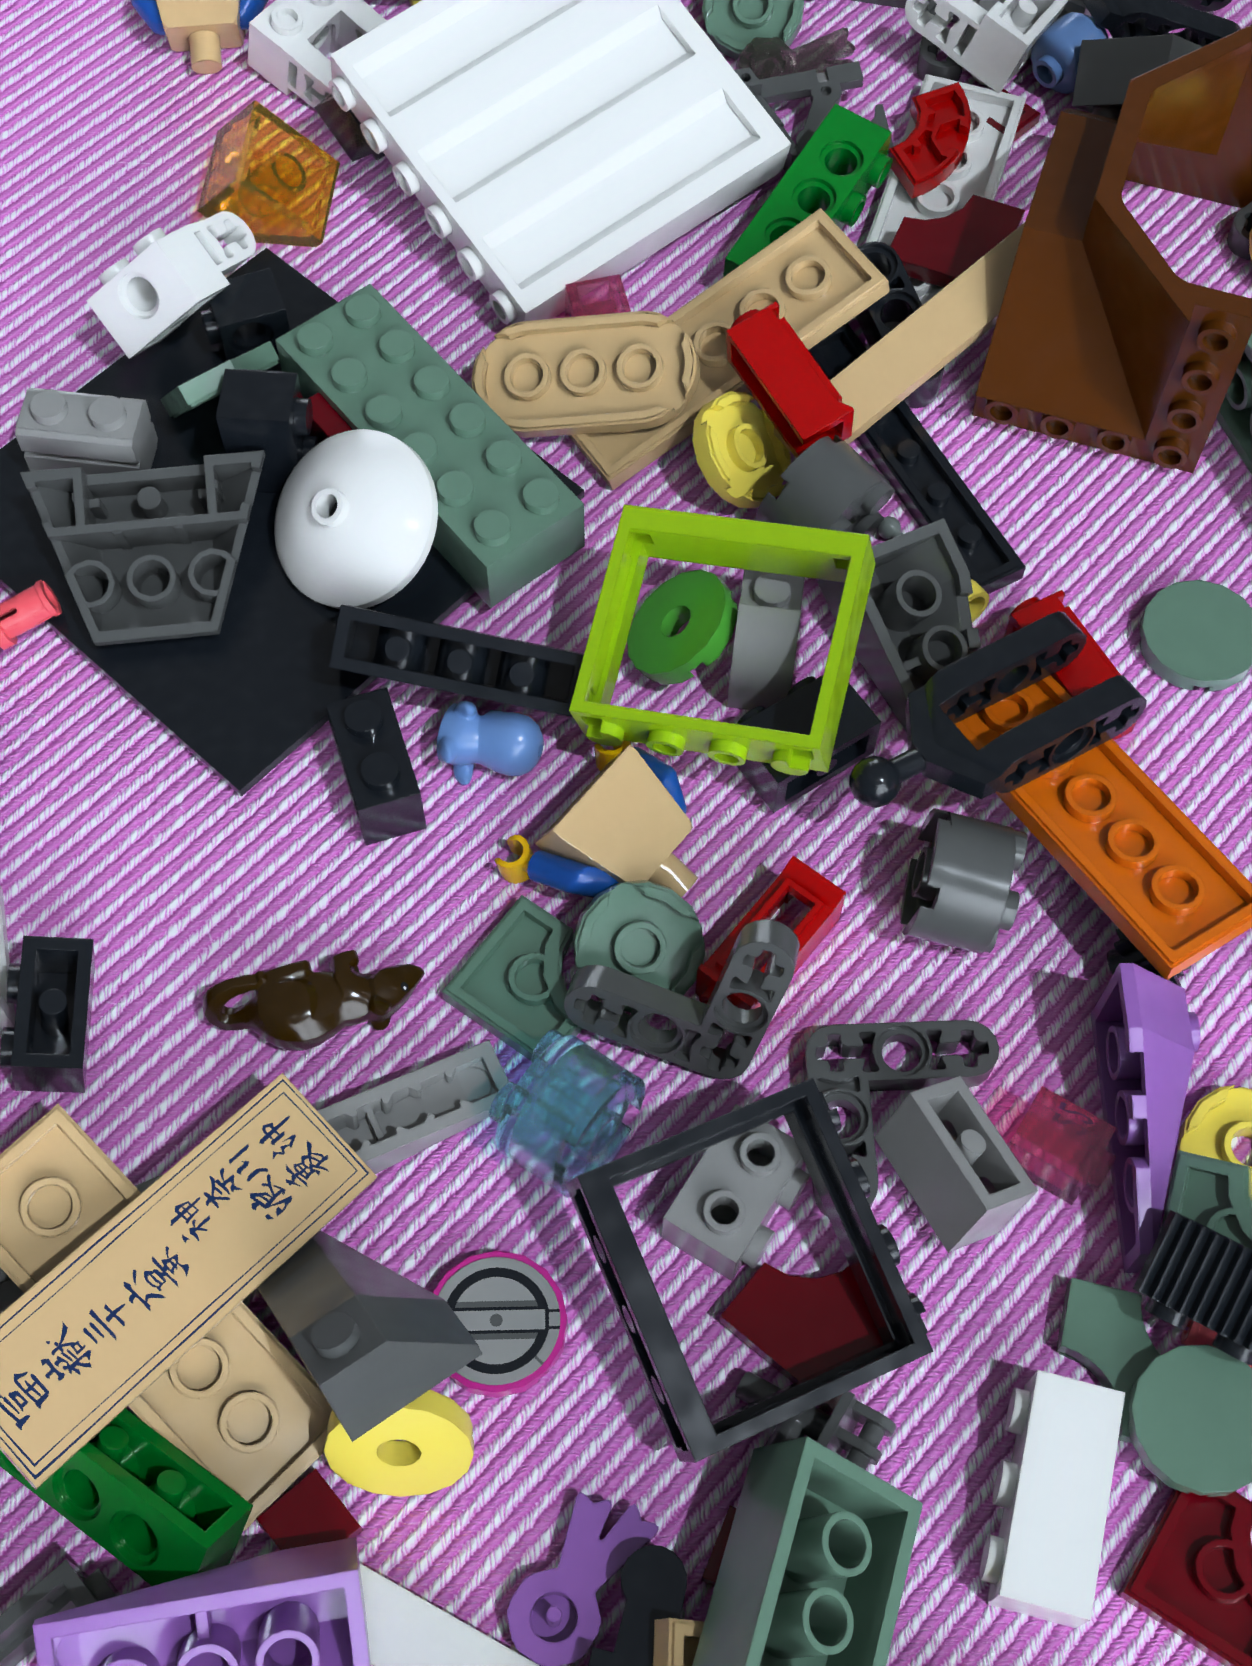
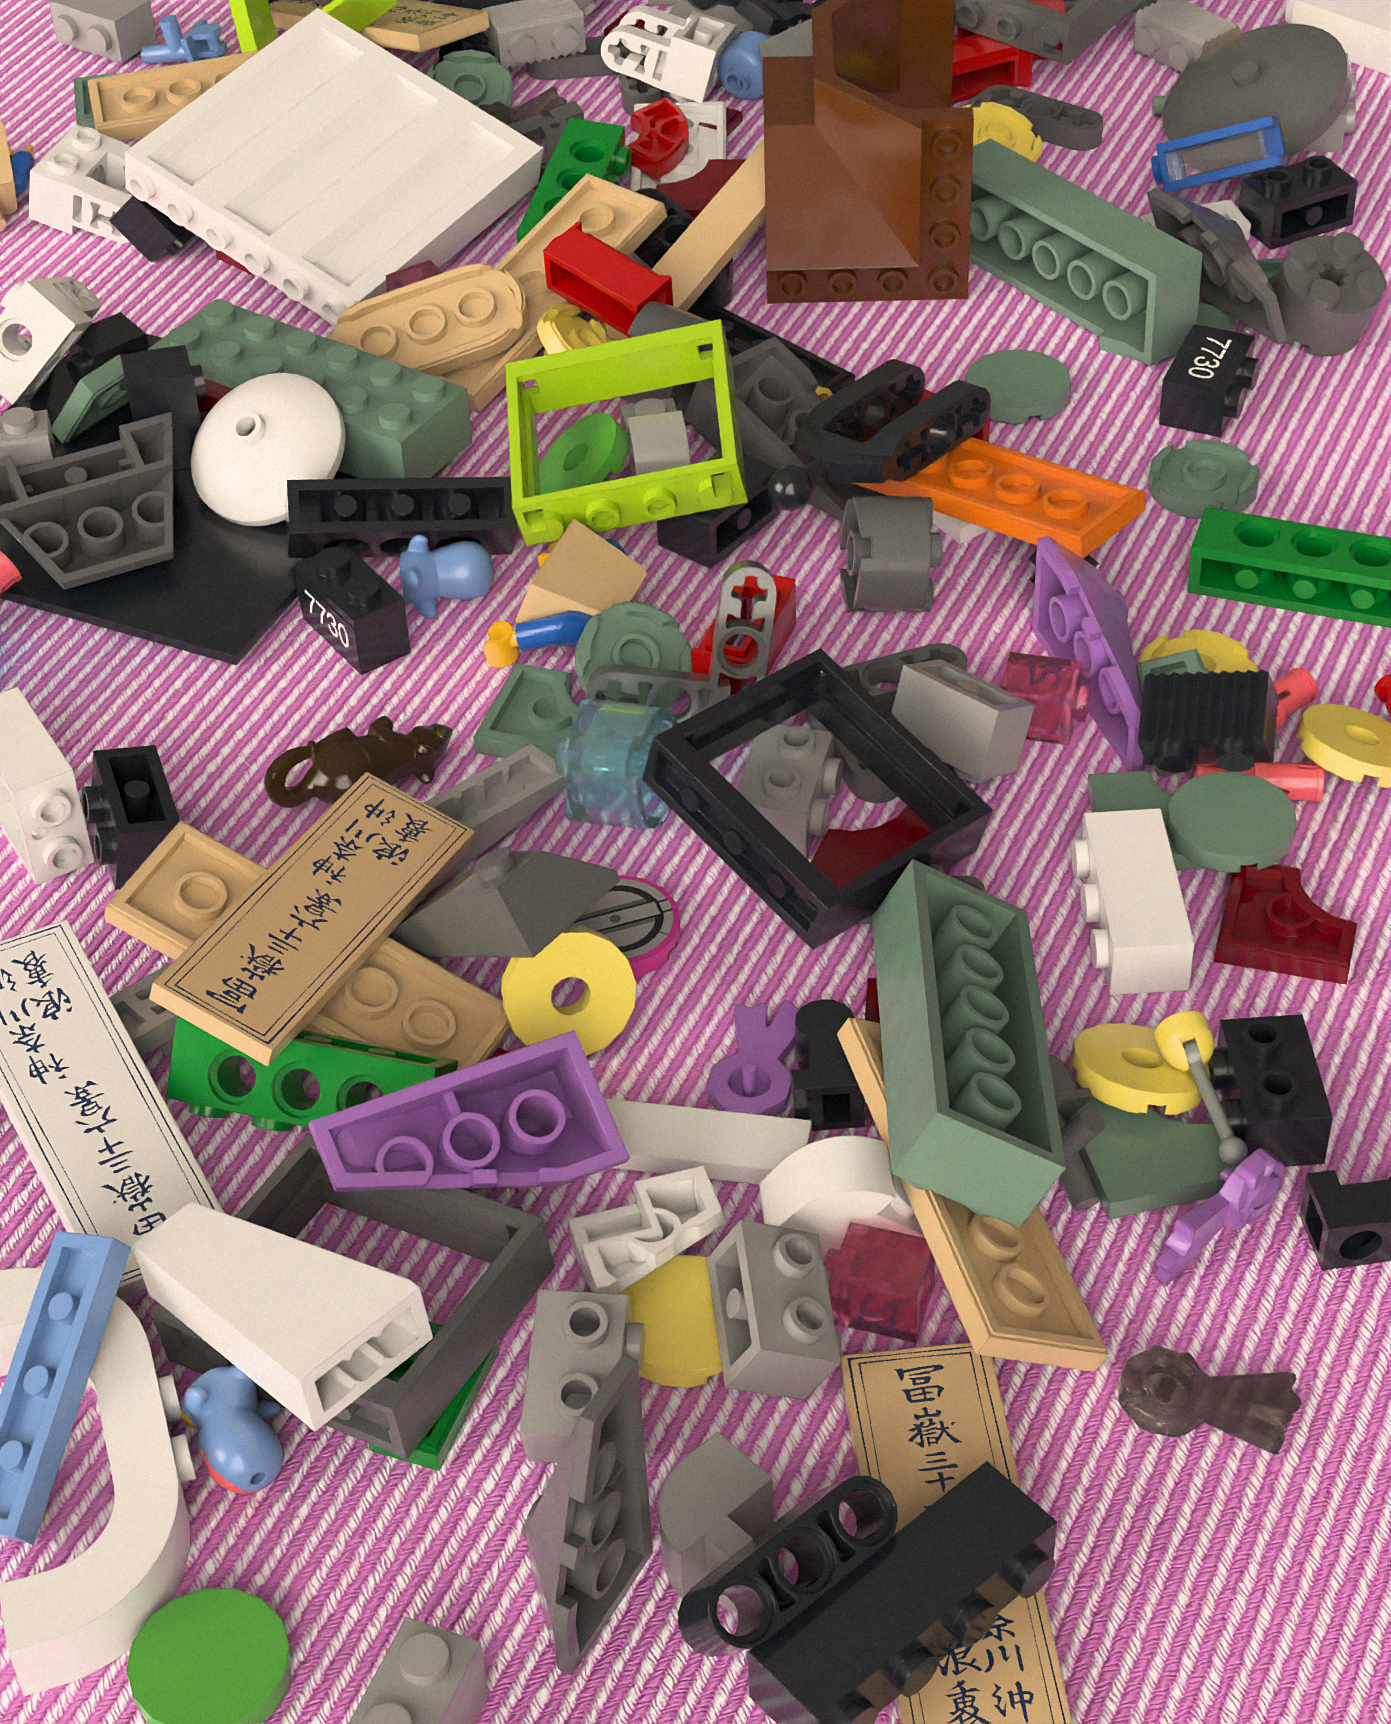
camera: 15 degrees left, 20 degrees down
(270, 179) = (101, 267): clear yellow slope -> none

